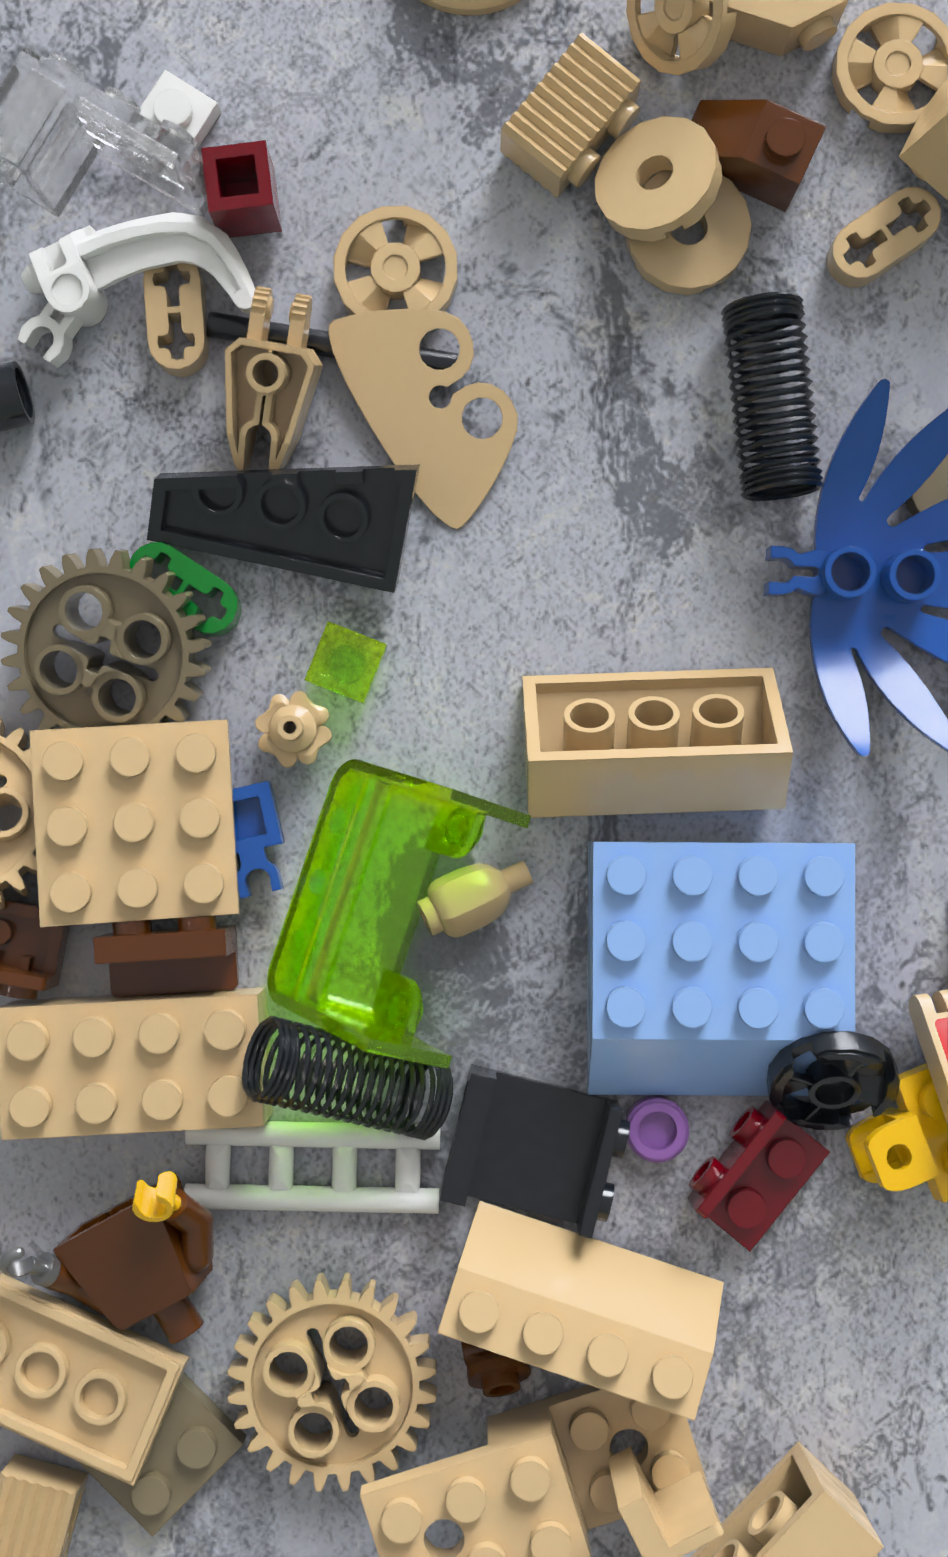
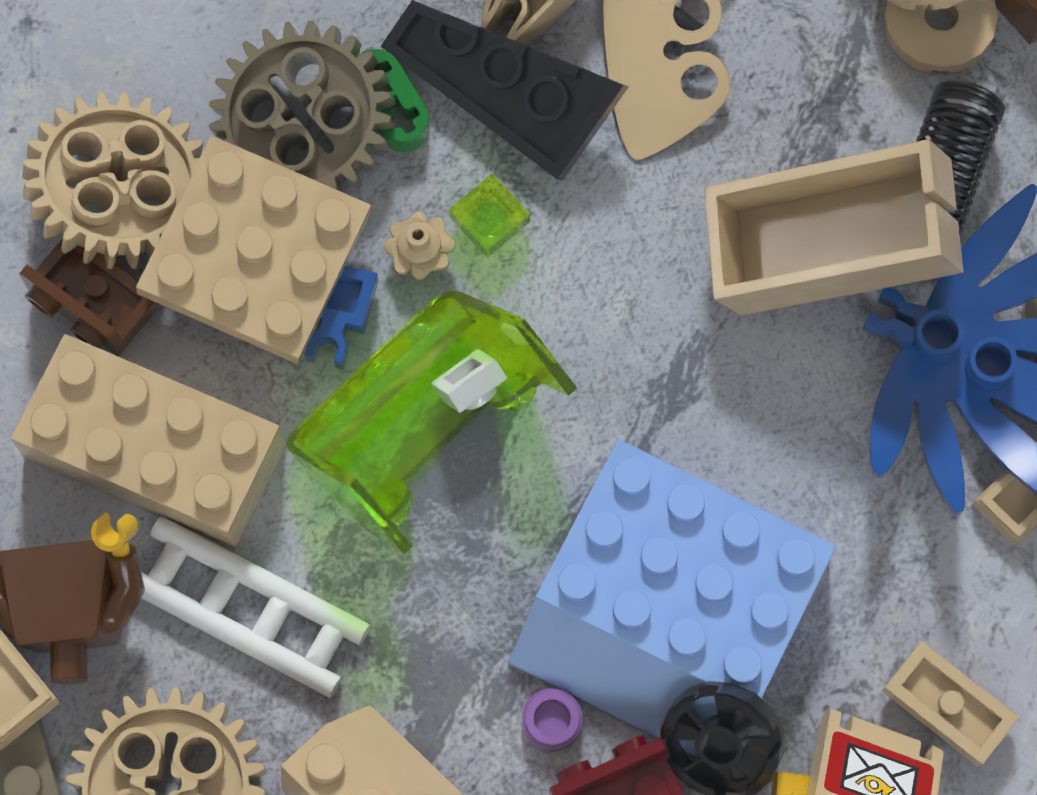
camera: 25 degrees right, 15 degrees down
(169, 961) = (223, 367): reddish brown bracket -> none
(288, 1069) = (267, 471): black piece -> none
(415, 848) = (470, 382): none -> white plate
(470, 897) = (494, 449): tan plant -> none
(535, 1148) = (436, 680): black panel -> none
(655, 742) = (708, 397): tan slope -> none
(703, 521) = (833, 228): none -> tan piece

